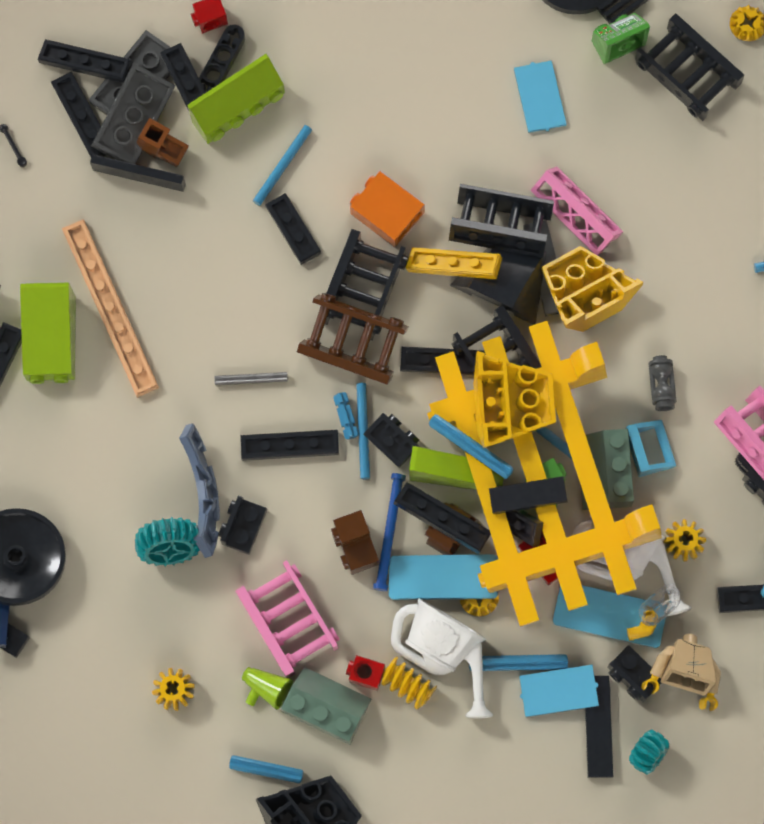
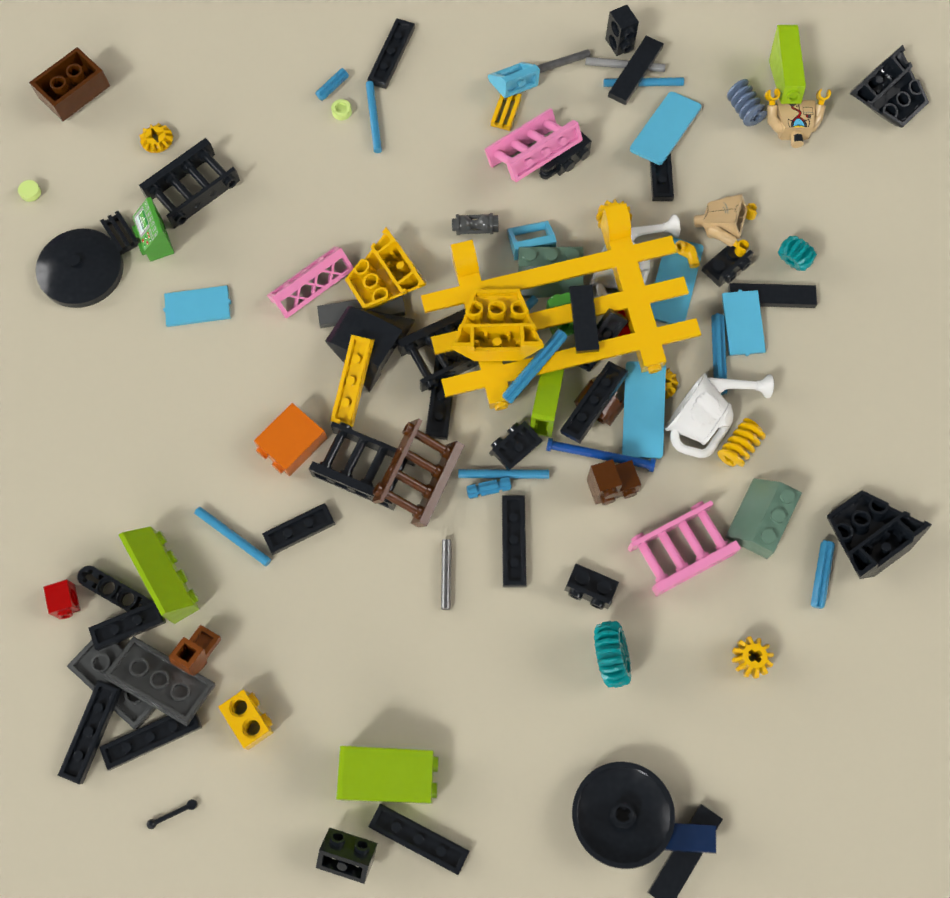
camera: 90 degrees left, 5 degrees down
(94, 195) = (241, 723): none -> yellow brick
(110, 308) = (360, 713): light nougat tile -> none
(138, 173) = (222, 678): black tile -> none
(207, 490) = (559, 618): sand blue tile -> none
(268, 686) = (747, 567): lime piece -> none
(372, 682) = (736, 471): red brick -> none
(500, 237) = (330, 346): black fence -> none
(655, 601) = (677, 230): clear beam -> none

